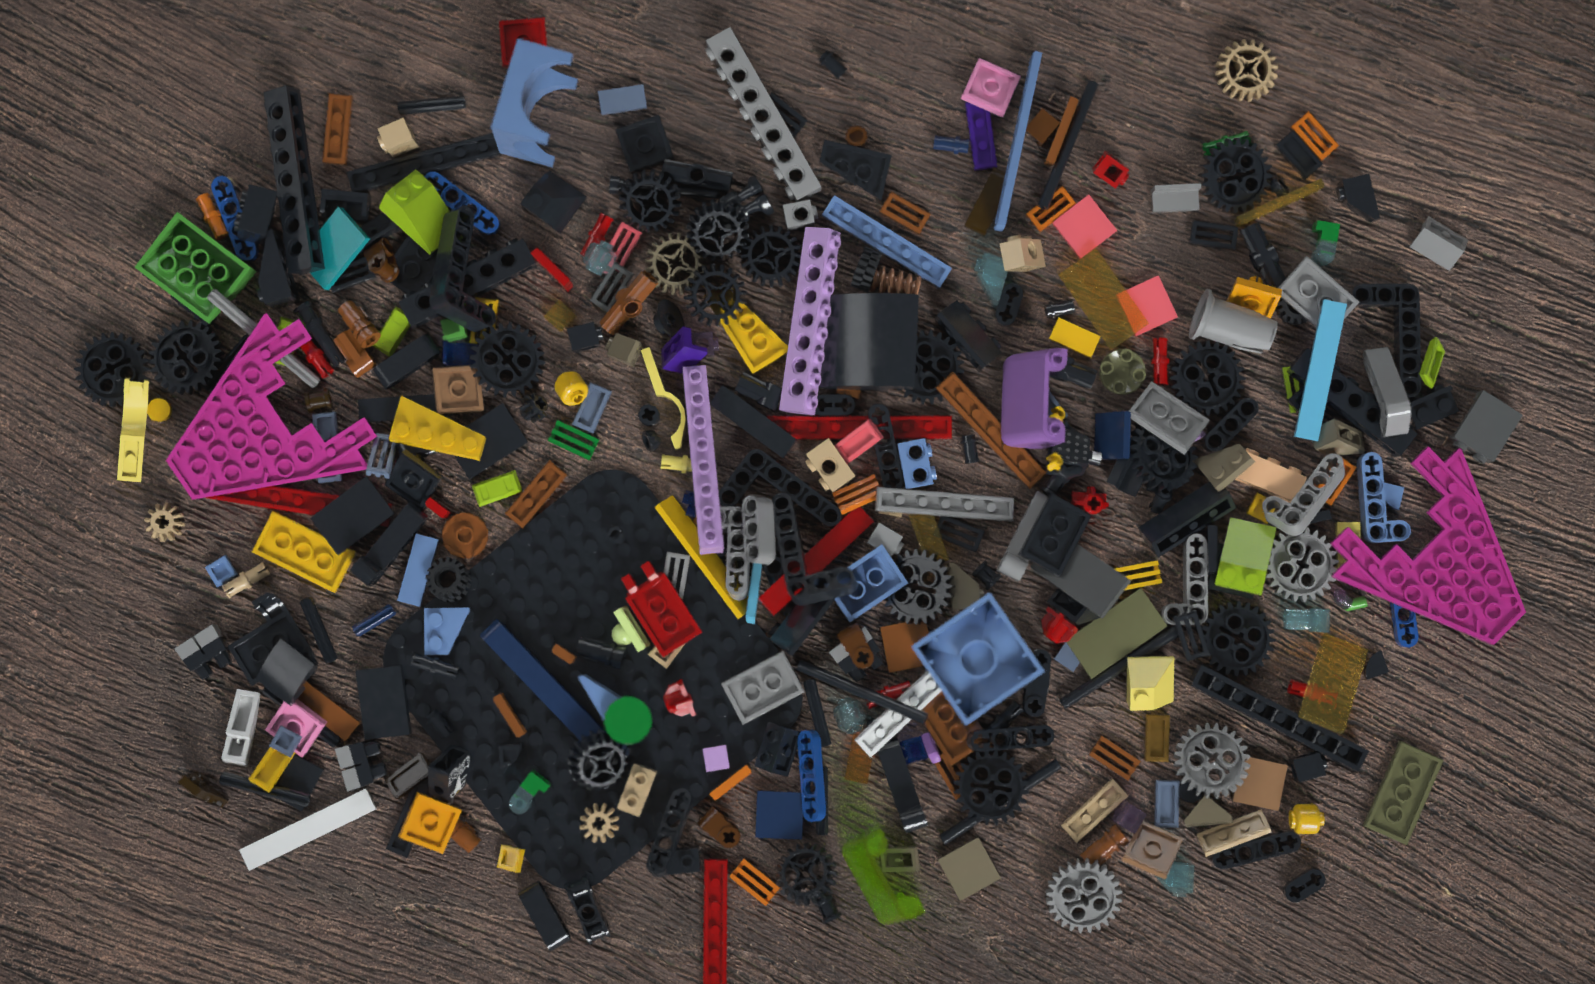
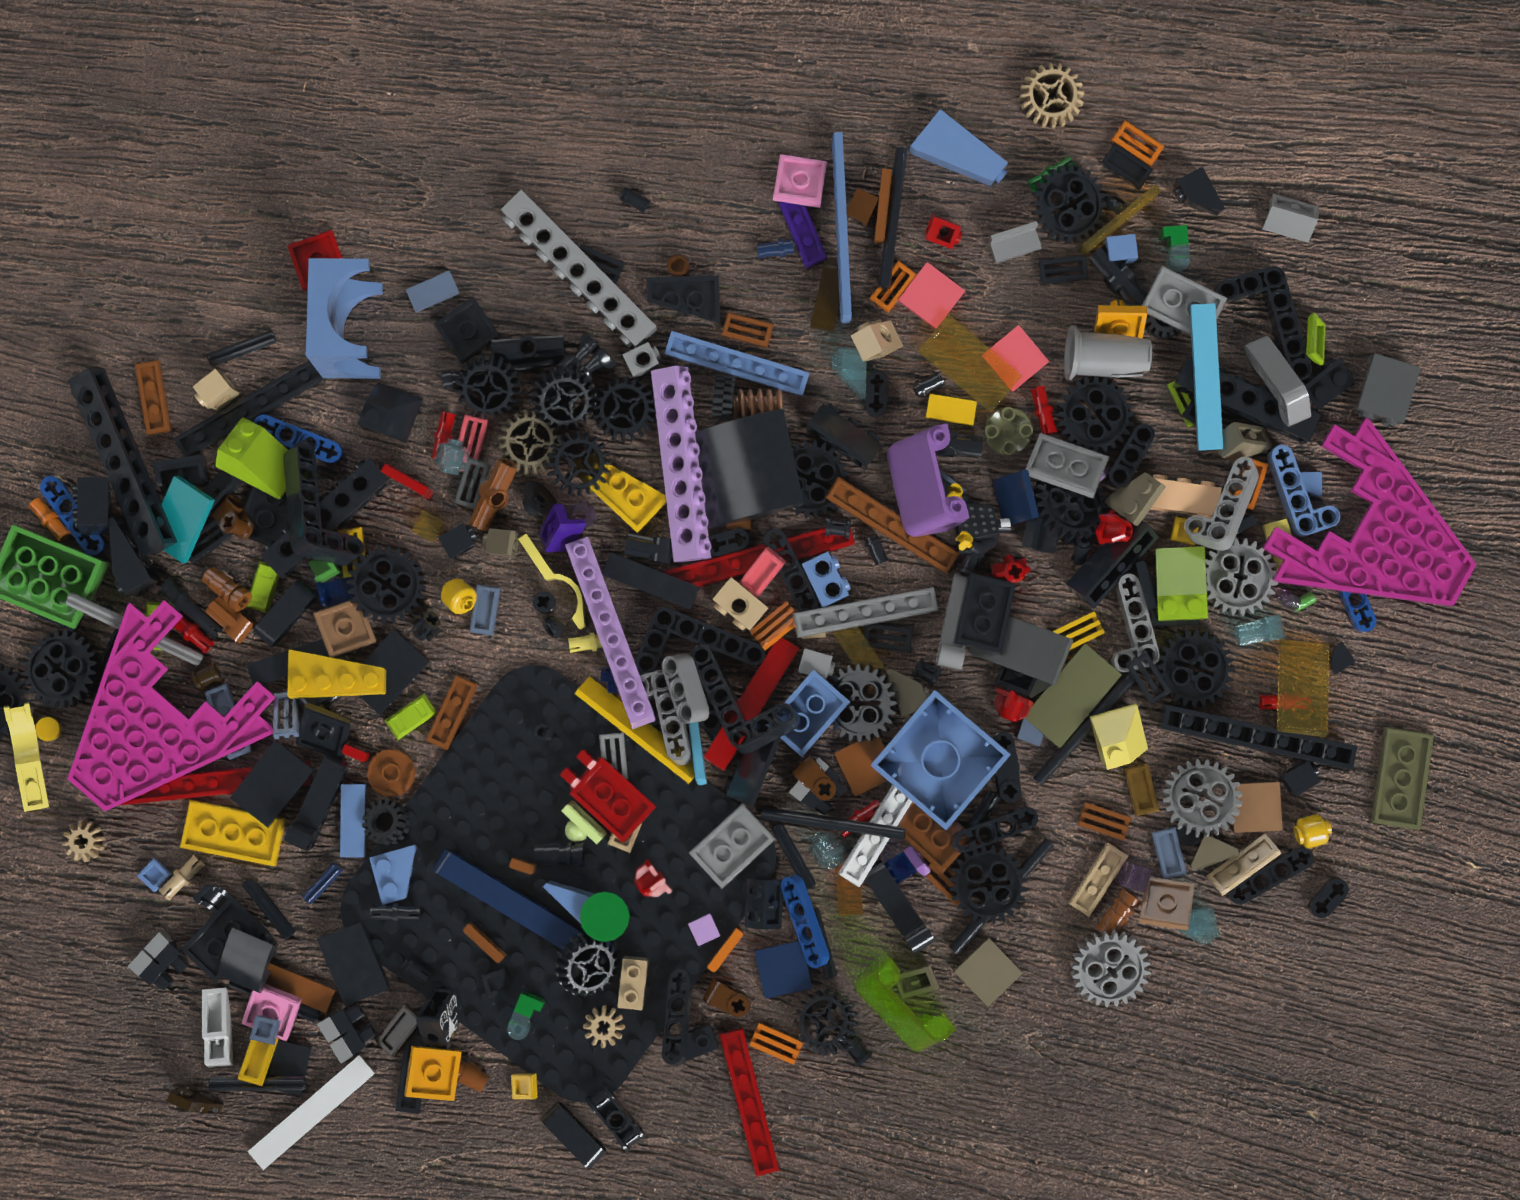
camera: 15 degrees left, 0 degrees up
(555, 431) = (454, 644): green tile -> none
(940, 418) = (838, 527): none -> black bush
(1145, 98) = (958, 150): none -> medium blue slope
(1196, 488) = (1113, 528): none -> red piece
(1274, 229) = (1122, 248): none -> medium blue panel

